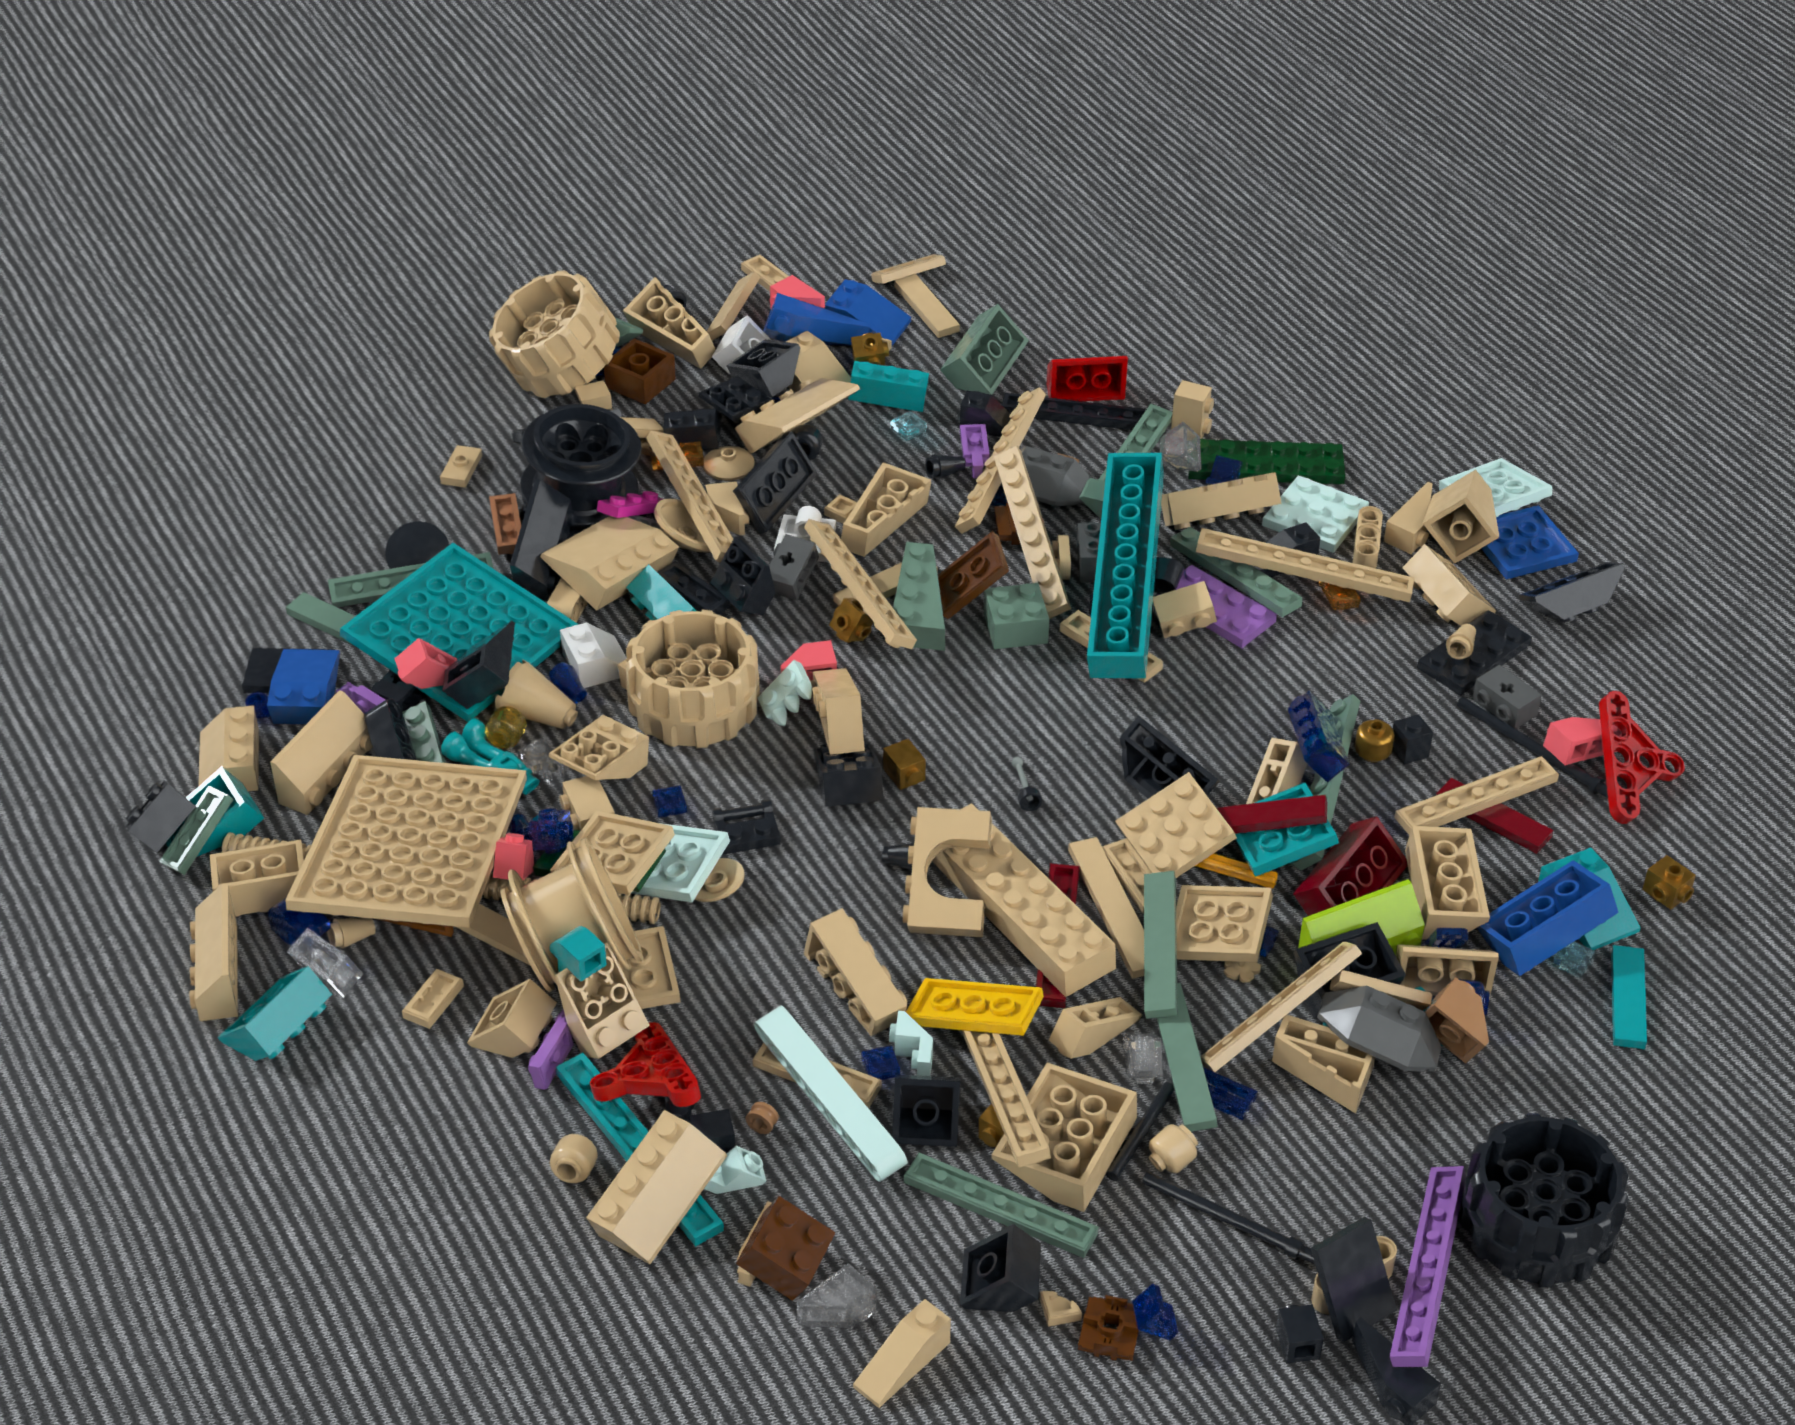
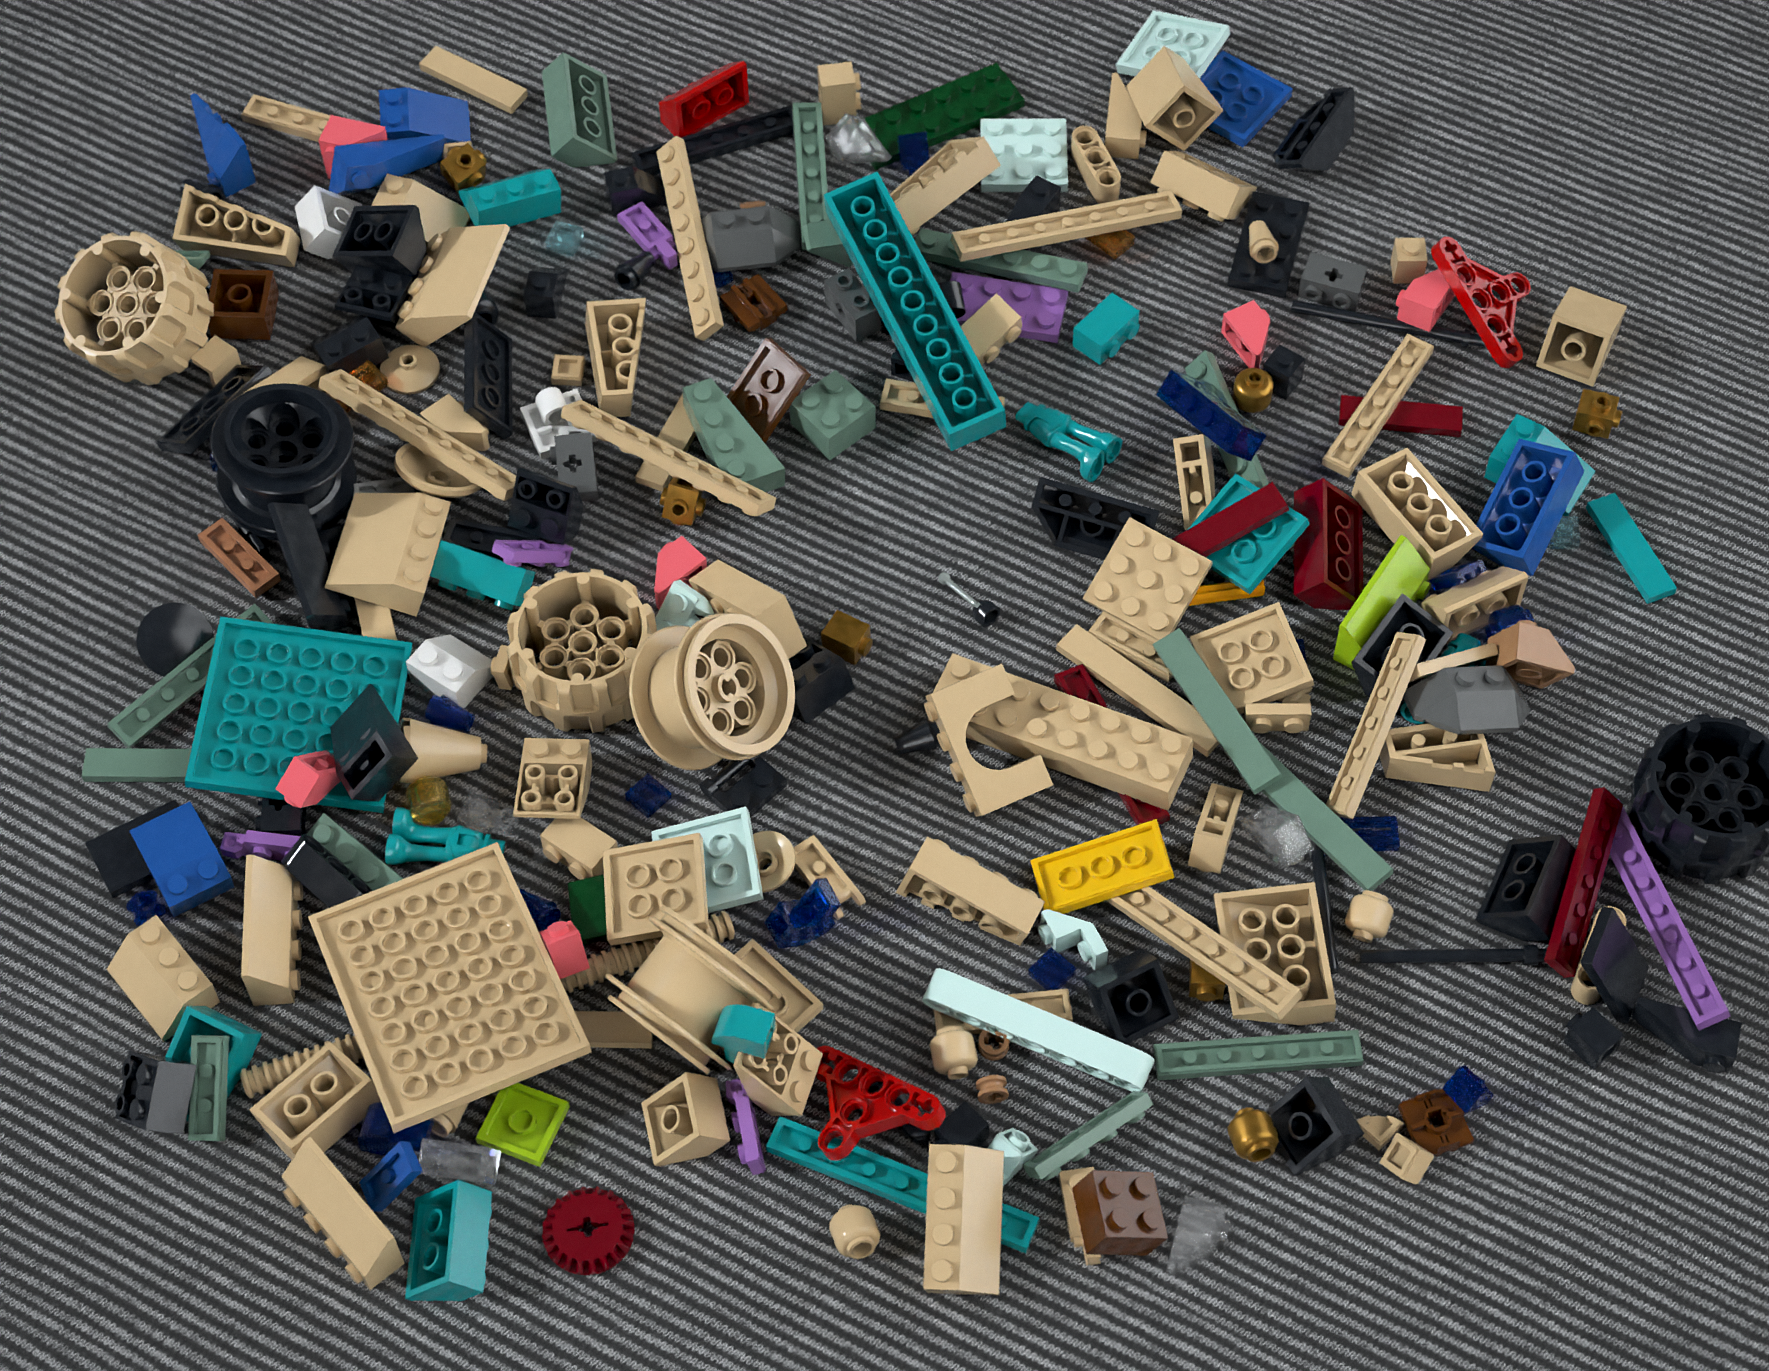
camera: 30 degrees left, 15 degrees up
(270, 947) = (390, 1176): none -> blue plate
(389, 1075) = (593, 1253): none -> dark red gear
(395, 964) = (523, 1123): none -> lime plate
(432, 998) = (588, 1138): tan plate -> none
(461, 466) = (132, 510): tan plate -> none
(551, 830) = (573, 895): clear blue brick -> none
(630, 505) = (362, 474): dark pink plate -> none
(694, 593) = (532, 552): none -> medium lavender hinge
(703, 279) = (223, 150): none -> blue wedge
(713, 933) = (806, 919): none -> clear blue brick
(732, 305) = (274, 173): tan tile -> none
(752, 1076) = (953, 1052): none -> tan head
(755, 912) = (816, 863): none -> tan hinge
(790, 726) = (712, 691): none -> tan wheel
(790, 1098) = (987, 1050): none -> medium nougat bush
(825, 1187) = (1077, 1143): none -> sand green plate
(864, 451) = (544, 292): none -> black slope
(904, 1353) = (1286, 1253): tan slope -> none
(908, 268) = (423, 42): tan tile -> none
(944, 1253) = (1253, 1134): none -> pearl gold head
(1031, 530) = (781, 307): tan plate -> none
(1062, 553) = (829, 325): tan plate -> none
(1063, 1341) = (1406, 1159): none -> tan slope
(1187, 700) = (1053, 428): none -> teal piece
(1210, 973) = (1278, 717): none -> tan plate
(1285, 650) = (1106, 328): none -> teal brick
(1334, 1197) = (1528, 887): none -> black slope
(1389, 1198) = (1583, 882): none -> dark red plate
(1405, 697) = (1247, 332): none -> coral slope
(1585, 702) = (1408, 259): none -> tan brick
(1701, 822) = (1581, 335): none -> tan slope

